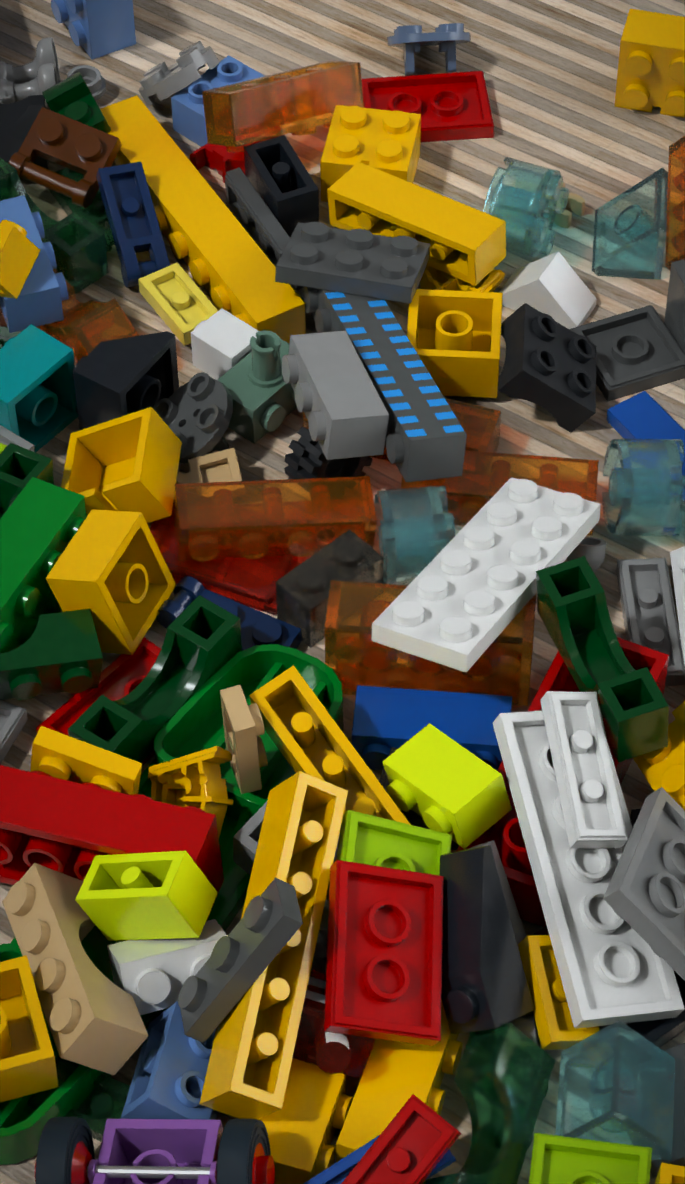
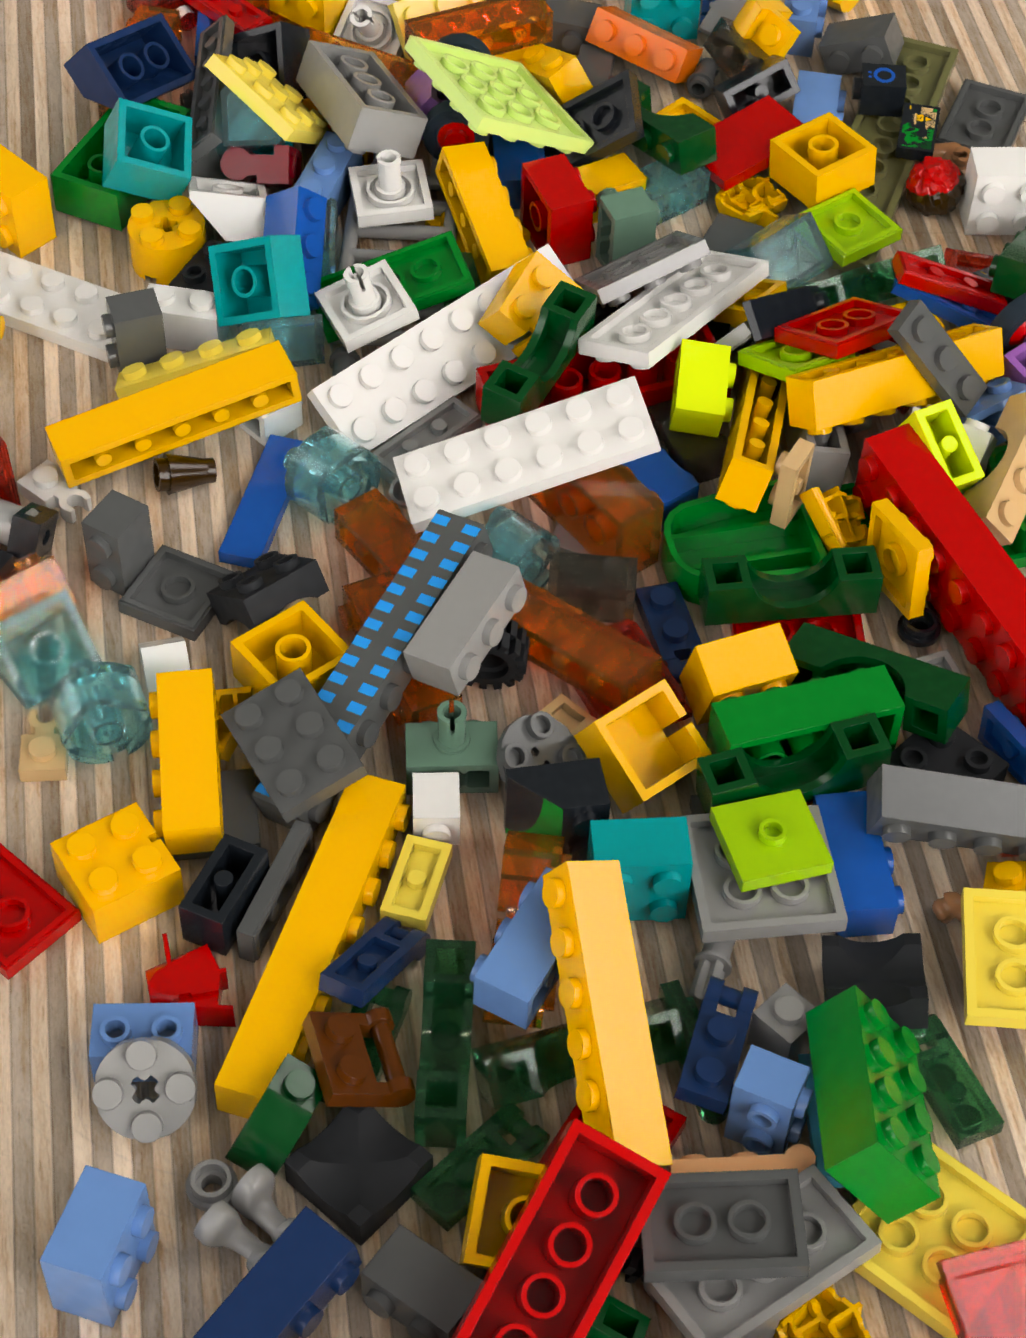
camera: 135 degrees left, 0 degrees up
(280, 103) = (130, 943): clear orange brick -> none
(583, 770) = (630, 316): white tile -> none

